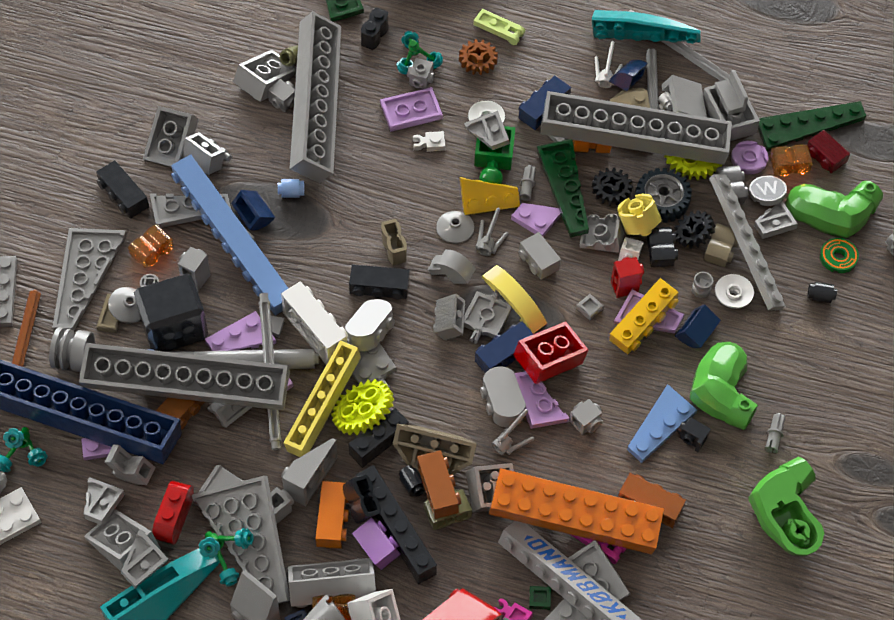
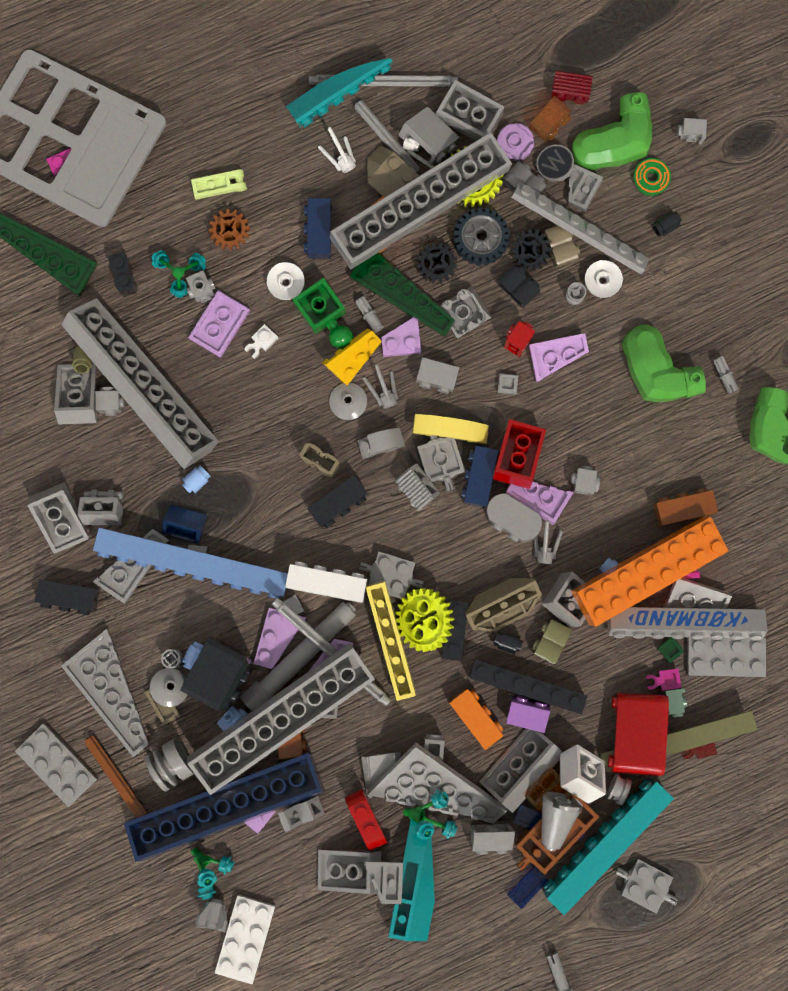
camera: 40 degrees left, 25 degrees up
(101, 501) = (304, 855): light grey wing -> none
(150, 246) = (138, 624): clear orange brick -> none
(196, 264) = (192, 617): light grey brick -> none
(308, 472) = (434, 712): light grey slope -> none
(361, 498) = (493, 695): black brick -> none
(370, 324) = (367, 547): brick -> none
(438, 484) = (536, 635): dark orange brick -> none
(489, 130) = (309, 300): light grey wing -> none
(629, 74) = (362, 145): dark blue brick -> none
(630, 248) = (499, 310): white bracket -> none
(639, 215) = (484, 276): light yellow brick -> none
(644, 316) = (560, 362): yellow brick -> none
(660, 423) = (639, 432): medium blue wing -> none
(693, 433) = (671, 427): black brick -> none
(698, 327) = (601, 333): dark blue brick -> none
(732, 94) = (465, 101): light grey panel -> none
(795, 126) = (526, 82): dark green wing -> none

